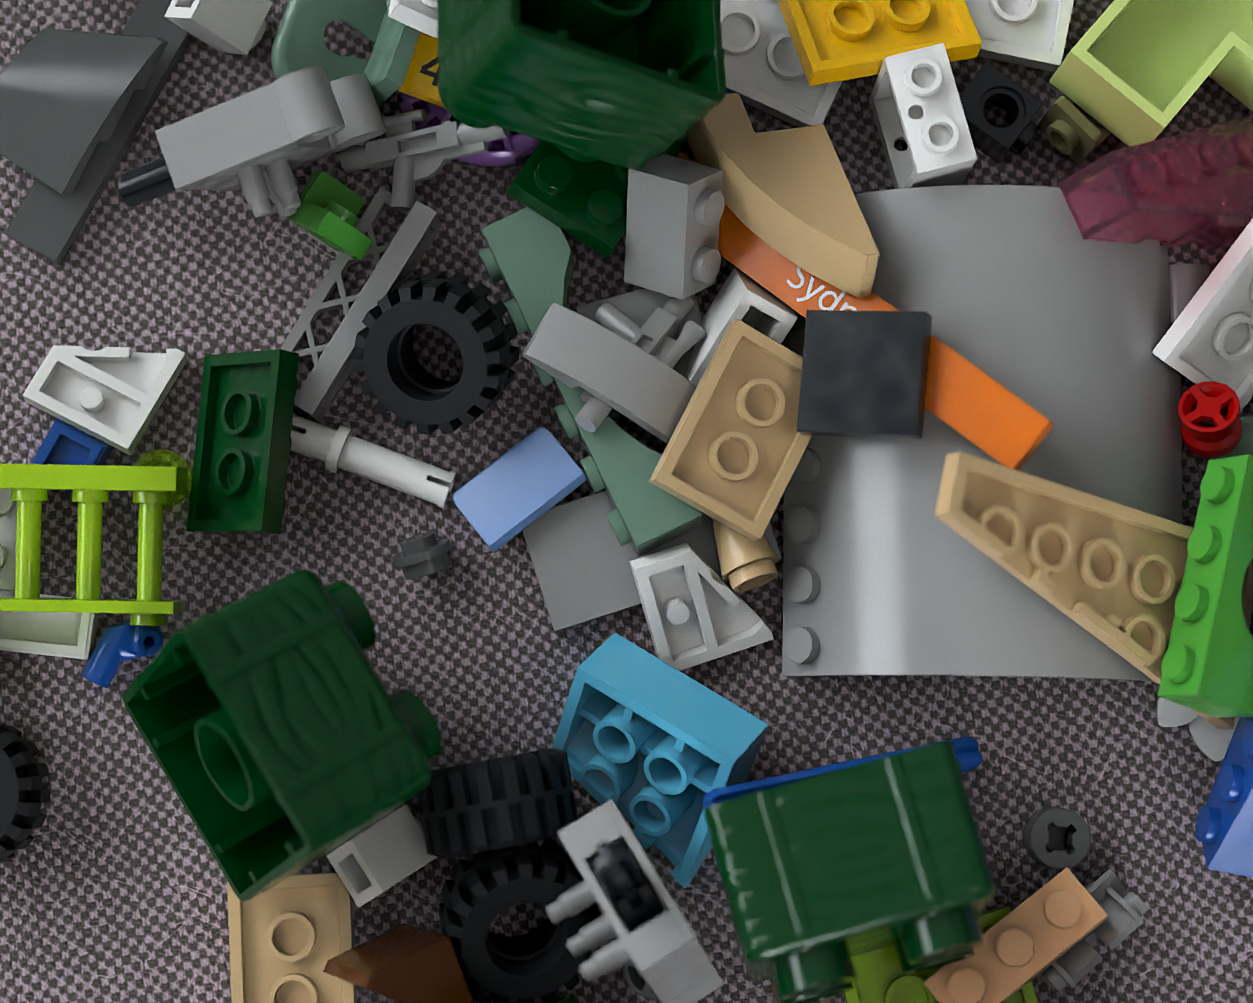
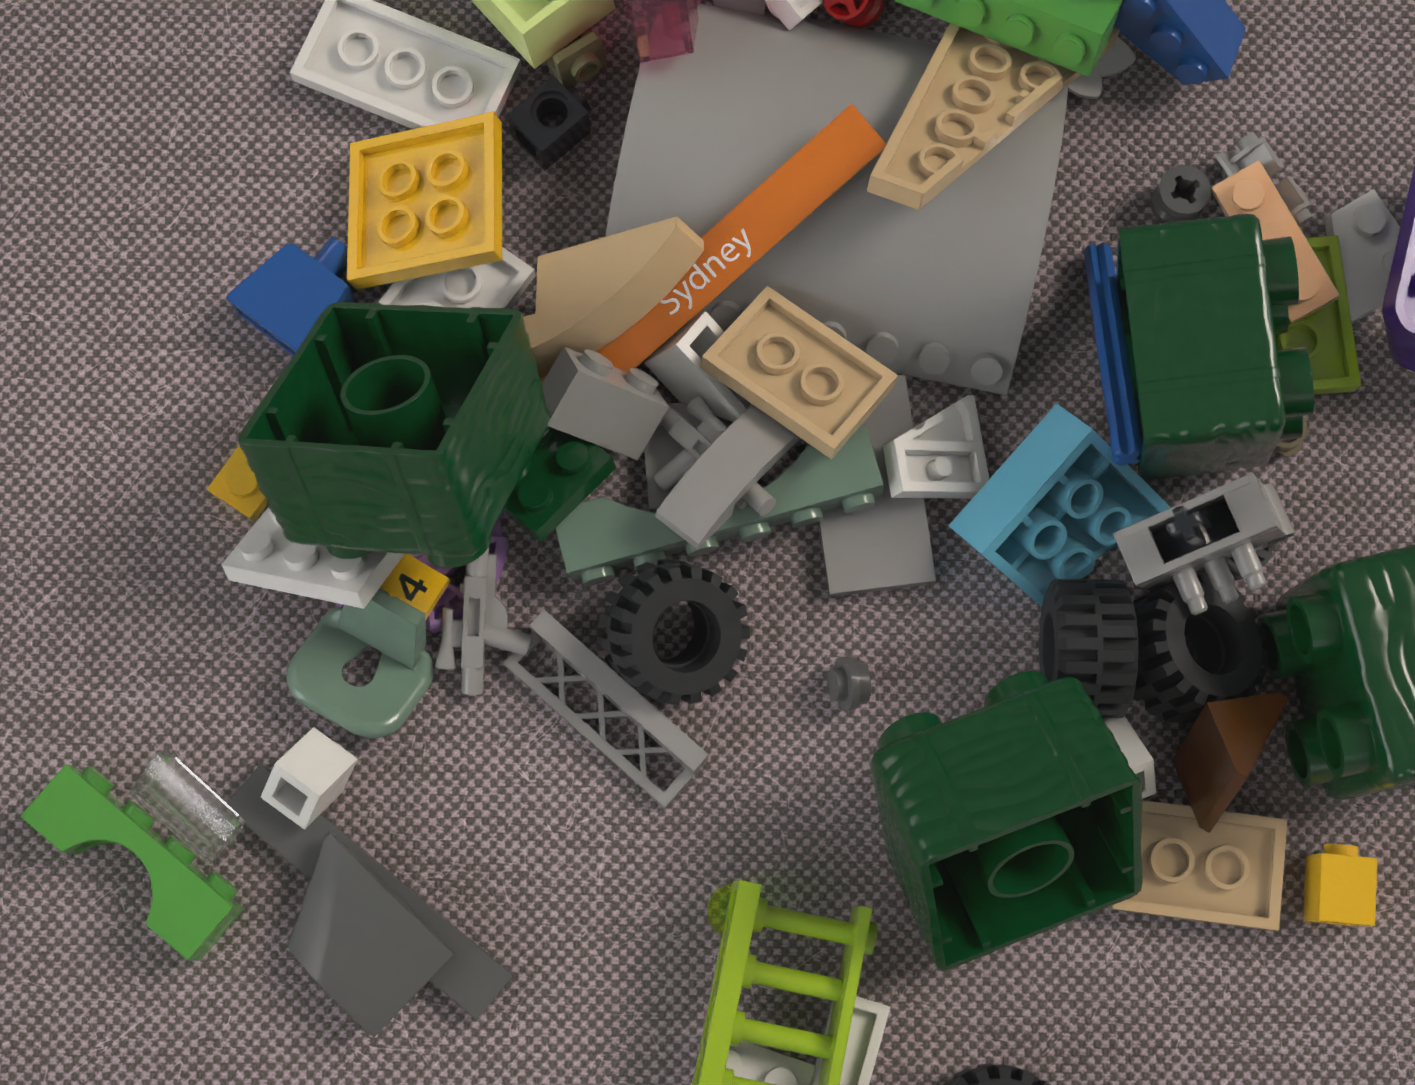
camera: 80 degrees left, 5 degrees down
(70, 447) = (691, 992): blue tile -> none
(105, 390) = (643, 948): white wing -> none
(118, 644) = (880, 977): blue arm -> none
(243, 443) = (721, 823): dark green plate -> none
(259, 140) = (454, 756): light grey piece -> none
(330, 215) = (520, 712): bright green bracket -> none
(346, 452) = (756, 712): white pin -> none
(518, 488) = (805, 587): medium blue slope -> none
(744, 561) = (904, 403): tan cone -> none
(864, 373) = (773, 257): black tile -> none
(921, 104) = (533, 190): white window -> none

